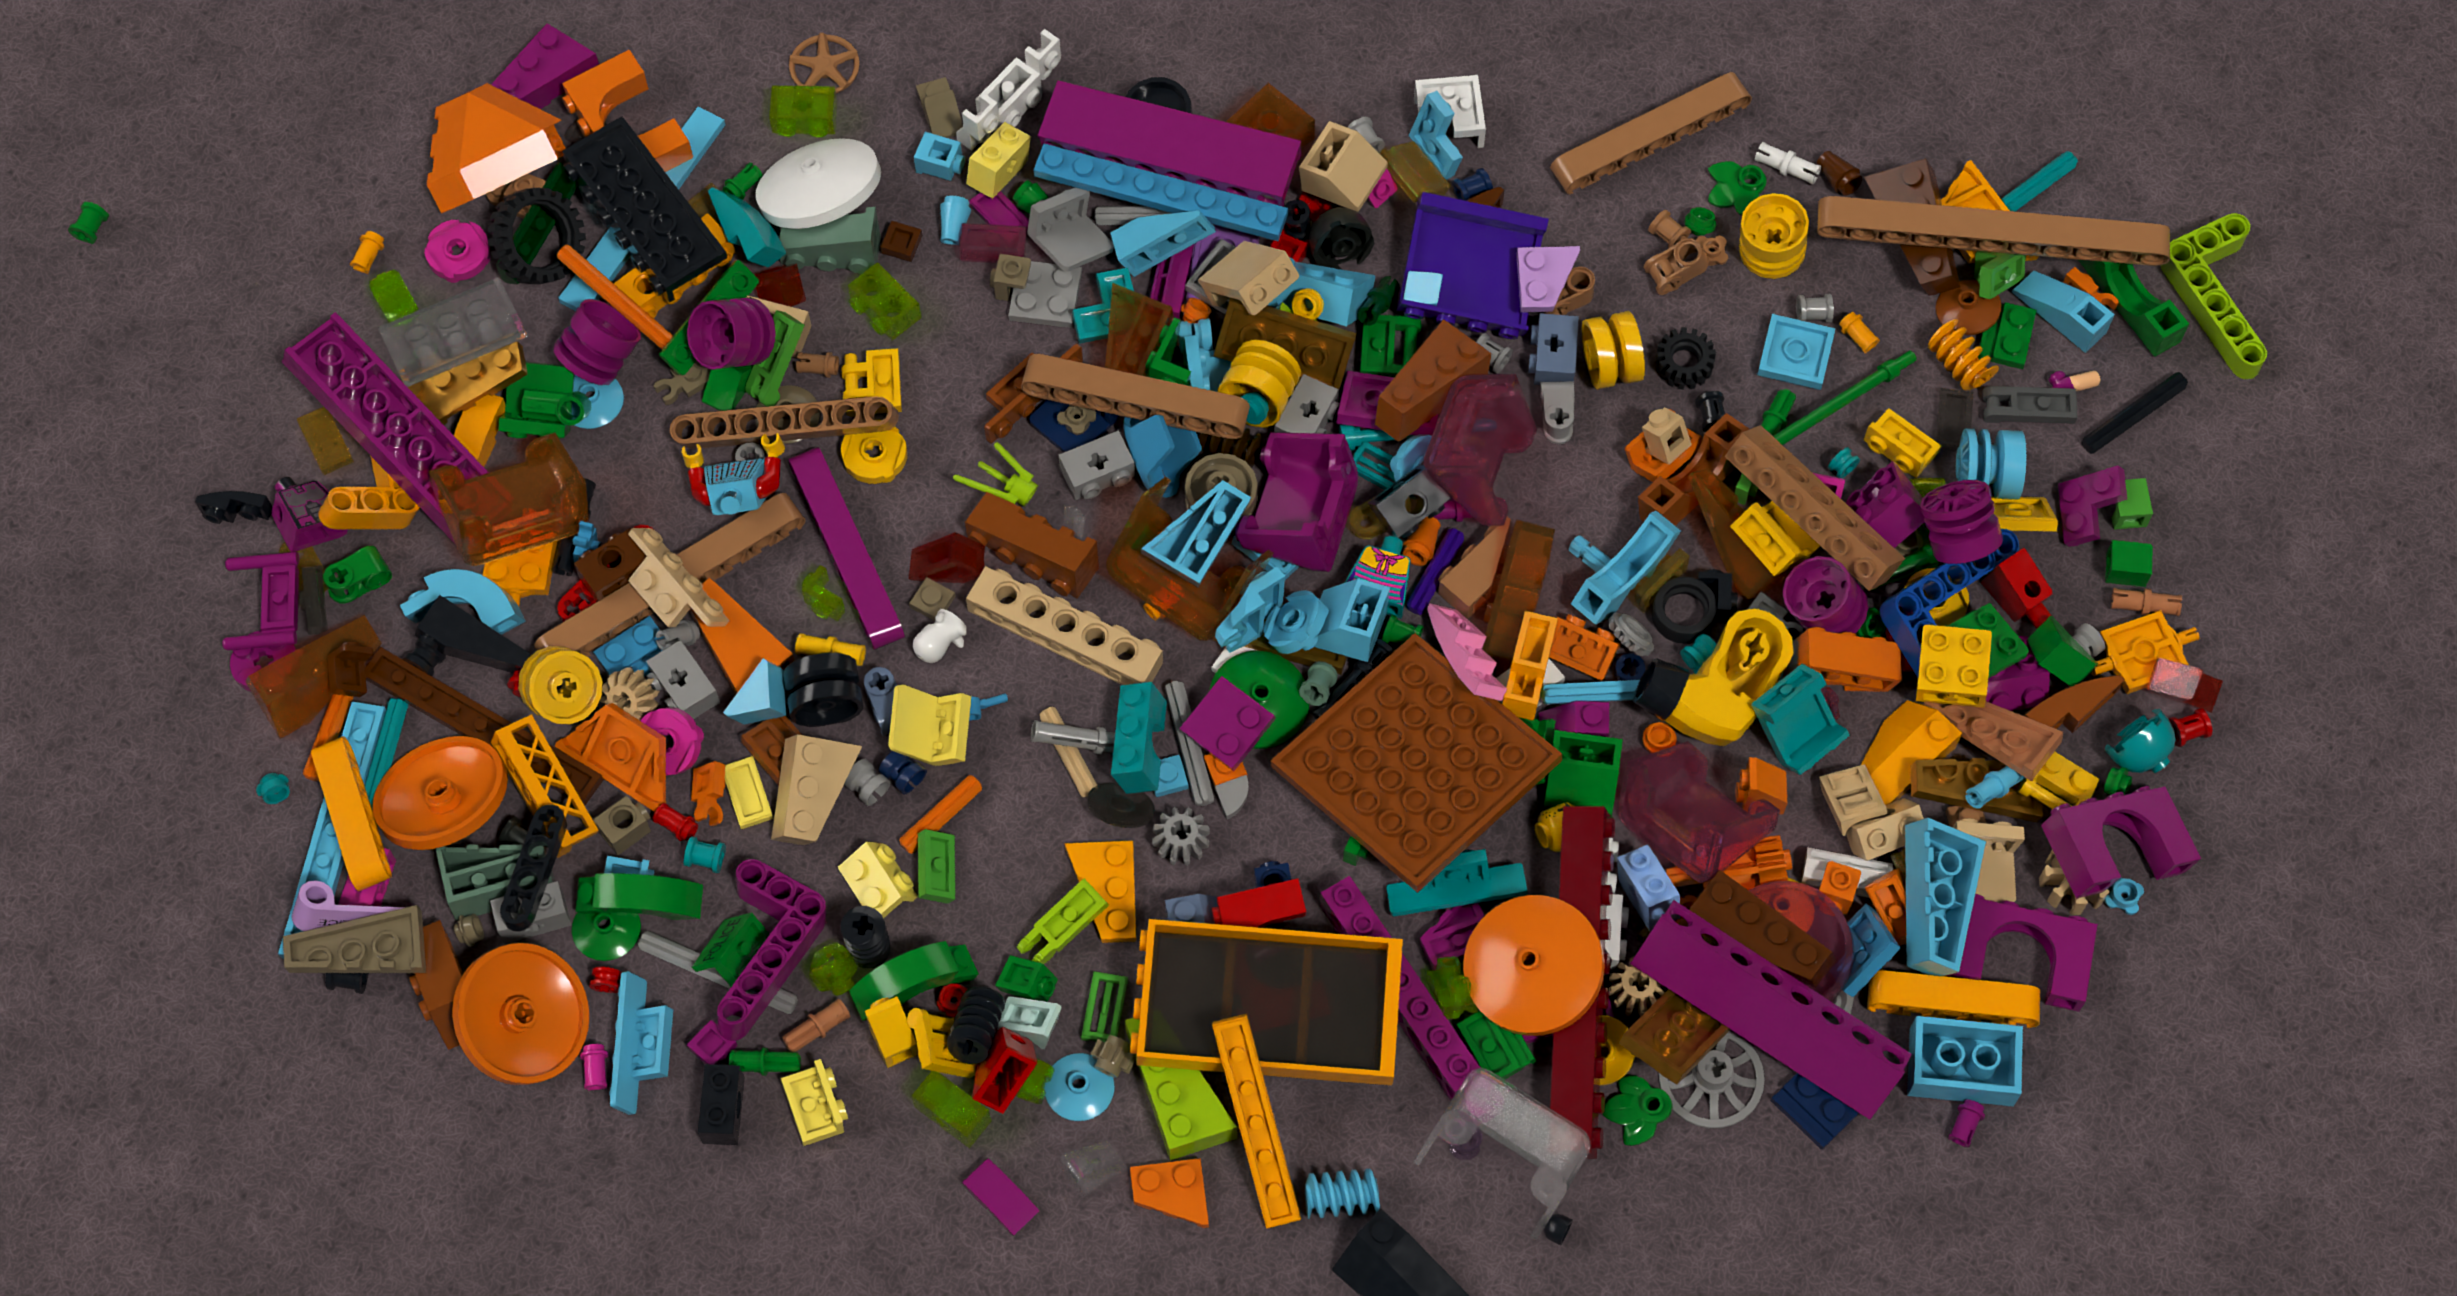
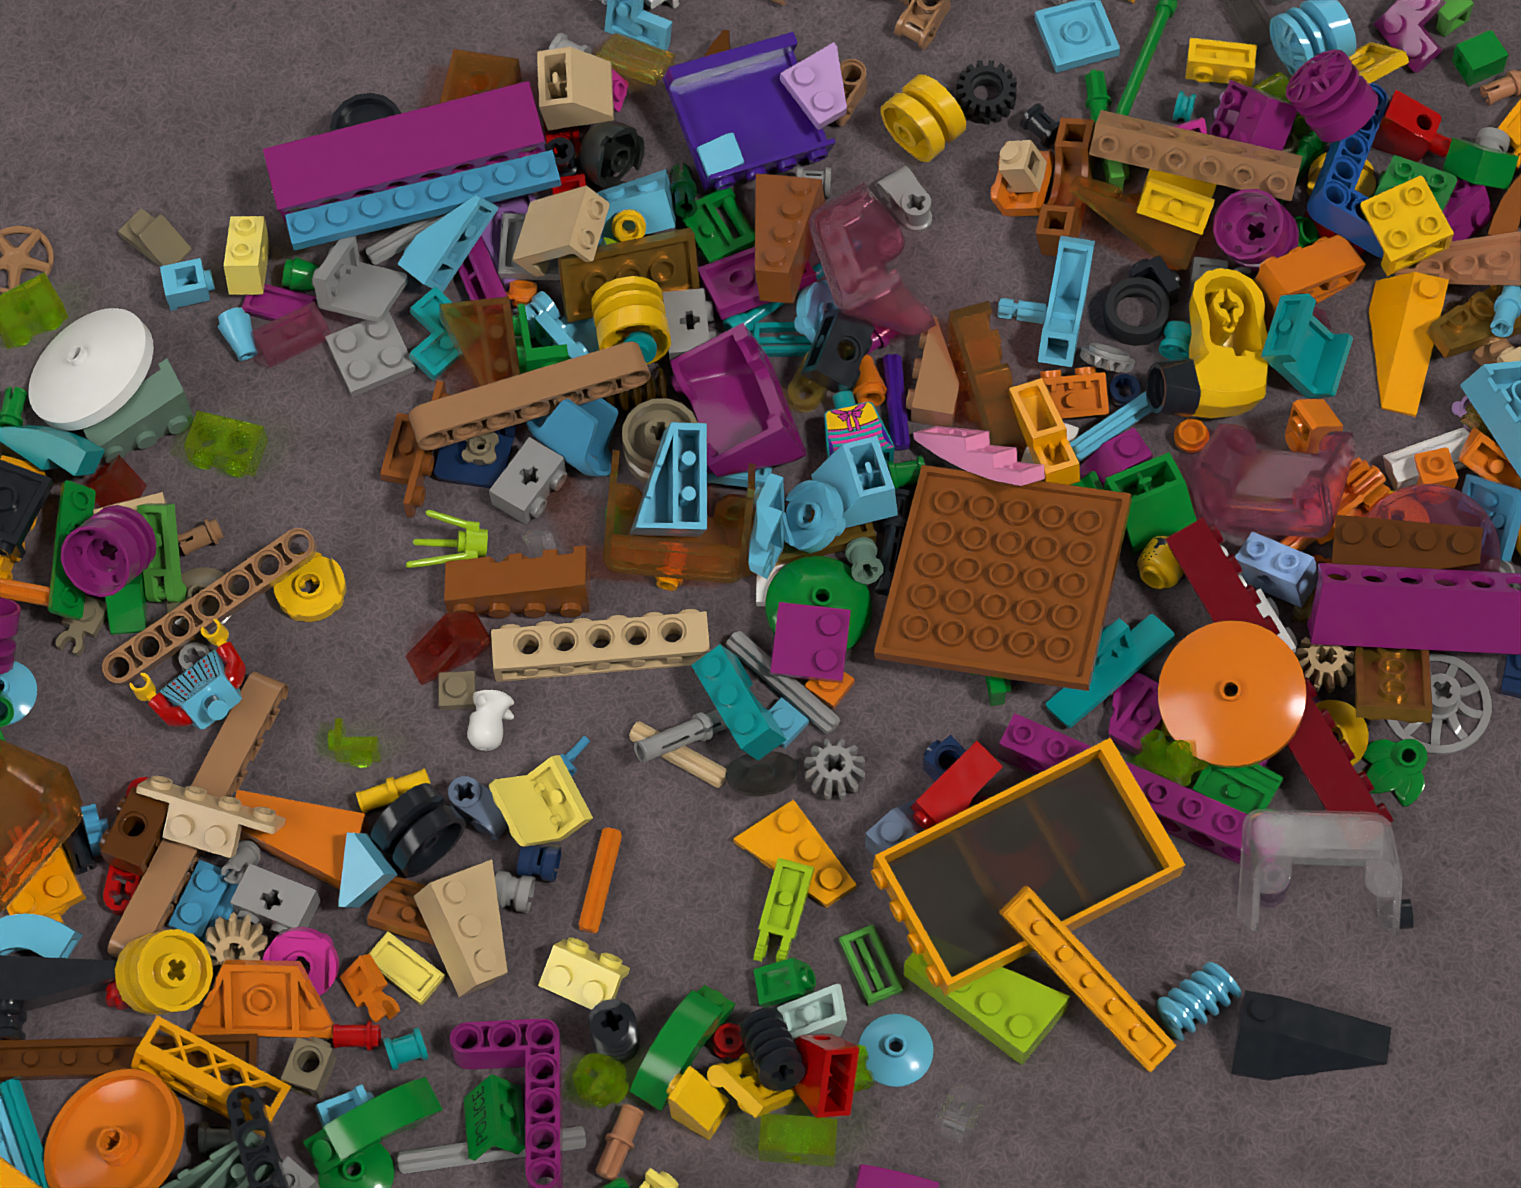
camera: 30 degrees left, 0 degrees up
(846, 547) = (345, 687): magenta beam -> none
(882, 375) = (271, 514): yellow plate -> none
(901, 241) = (202, 380): reddish brown plate -> none
(936, 866) = (631, 929): bright green plate -> none
(1010, 272) = (329, 350): dark tan bracket -> none
(1011, 92) = (217, 186): white bracket -> none
(1113, 1056) = (911, 1002): dark tan gear -> none
(1172, 1189) = (1043, 1090): orange wing -> none
(1232, 795) = (853, 706): light grey tile -> none
(1472, 185) = (696, 43): dark blue bush -> none
(1556, 333) = (867, 146): sand blue brick -> none
(1667, 569) = (1100, 284): clear yellow plate -> none
(1856, 807) = (1402, 399): tan piece -> none
(1883, 833) = (1437, 401): tan brick -> none

